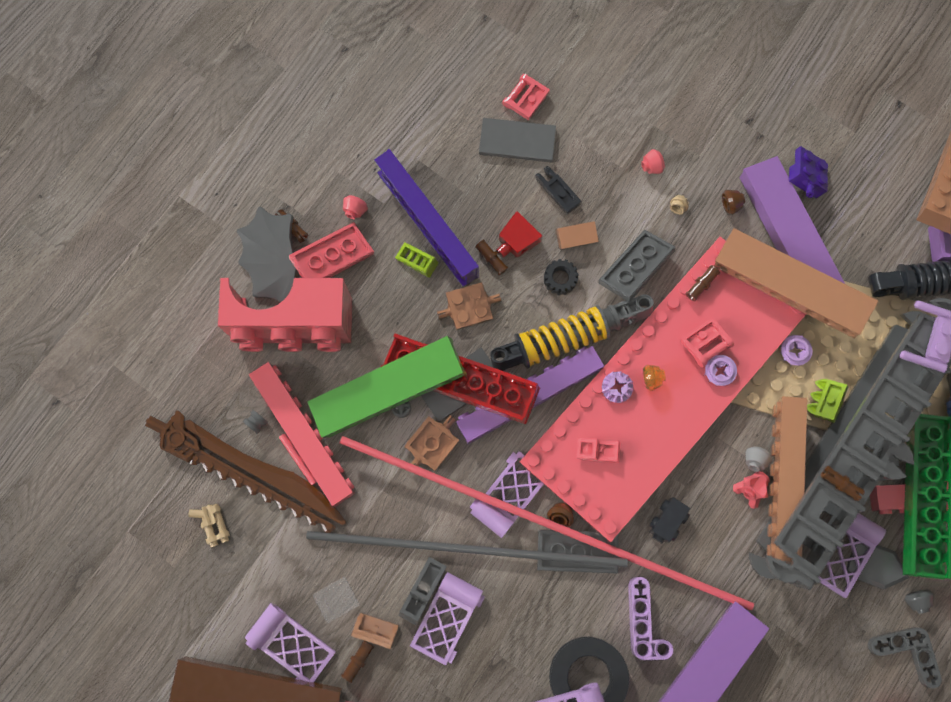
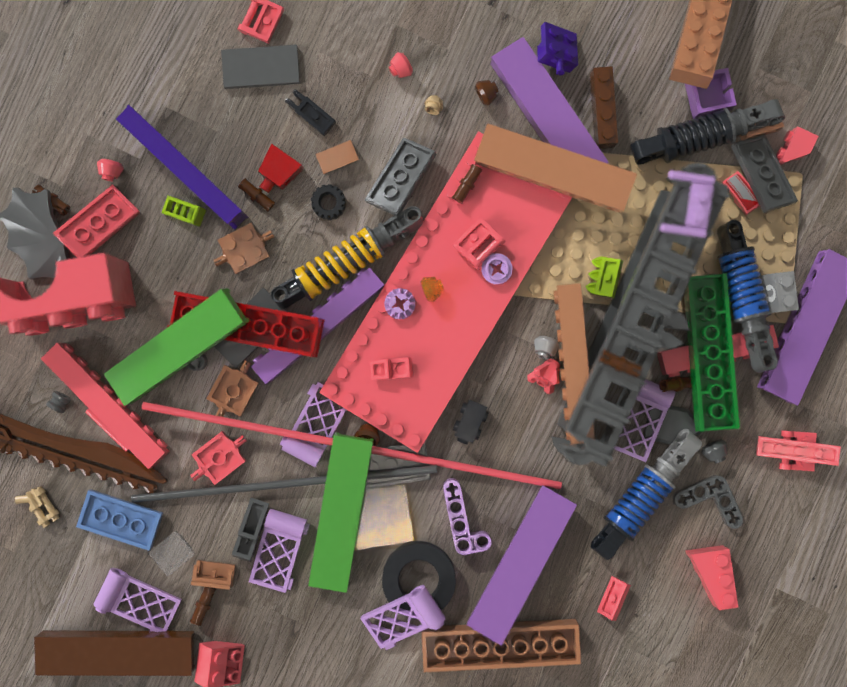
camera: 10 degrees left, 10 degrees up
(290, 554) = (119, 519): none -> medium blue plate
(404, 509) = (218, 457): none -> coral plate
(521, 590) = (340, 512): none -> bright green tile
(553, 603) = (384, 518): none -> clear yellow piece
(800, 343) = (572, 225): lavender gear -> none
(841, 633) = (648, 489): none -> piece
(846, 235) = (603, 107): none -> reddish brown brick
(887, 521) = (676, 383): none -> reddish brown pin

